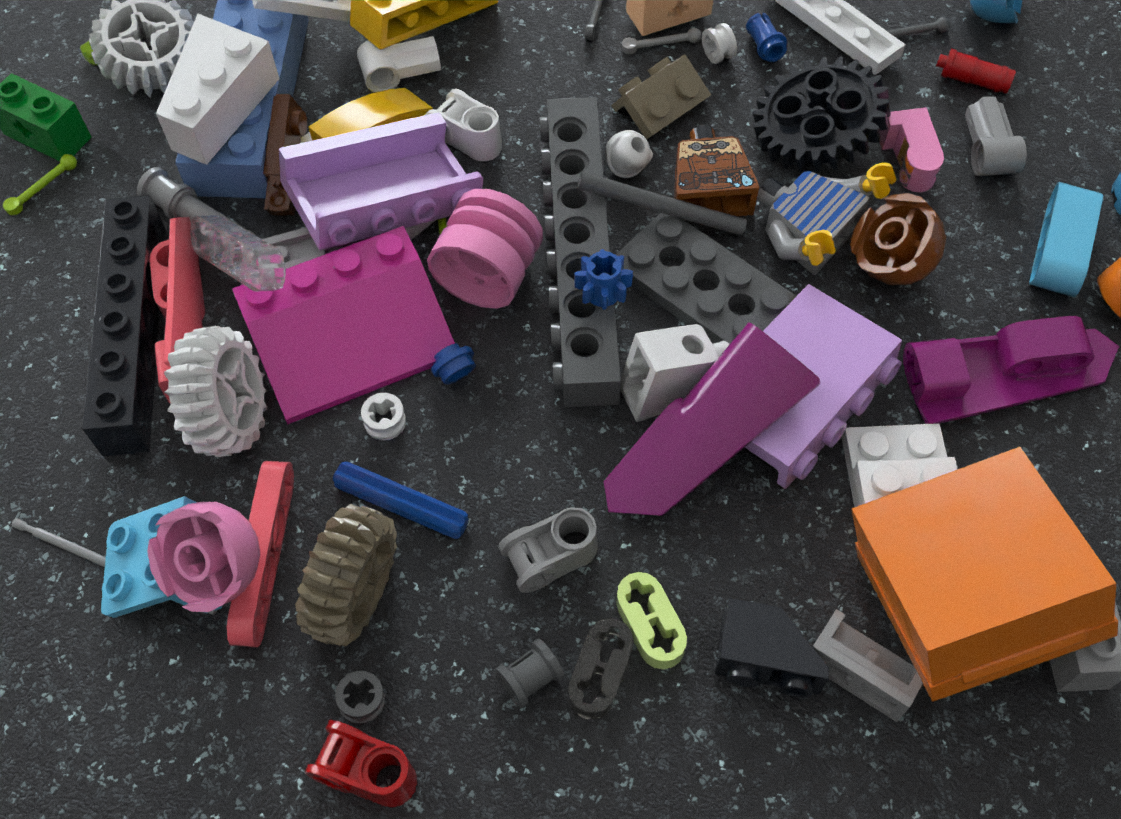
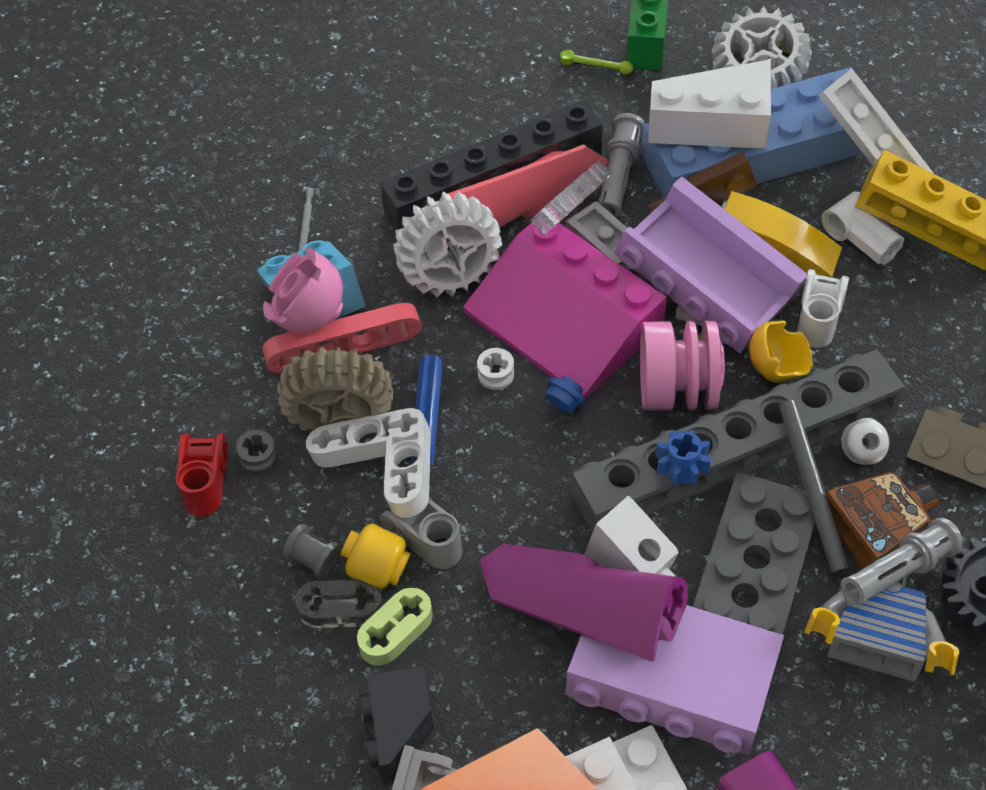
camera: 70 degrees right, 5 degrees down
(445, 535) = (330, 448): none -> white beam
(507, 172) = (780, 353): none -> yellow hair
(567, 607) = (375, 556): none -> yellow head
(768, 159) = (916, 554): none -> light grey pin
(899, 240) = (885, 707): dark orange cylinder -> none

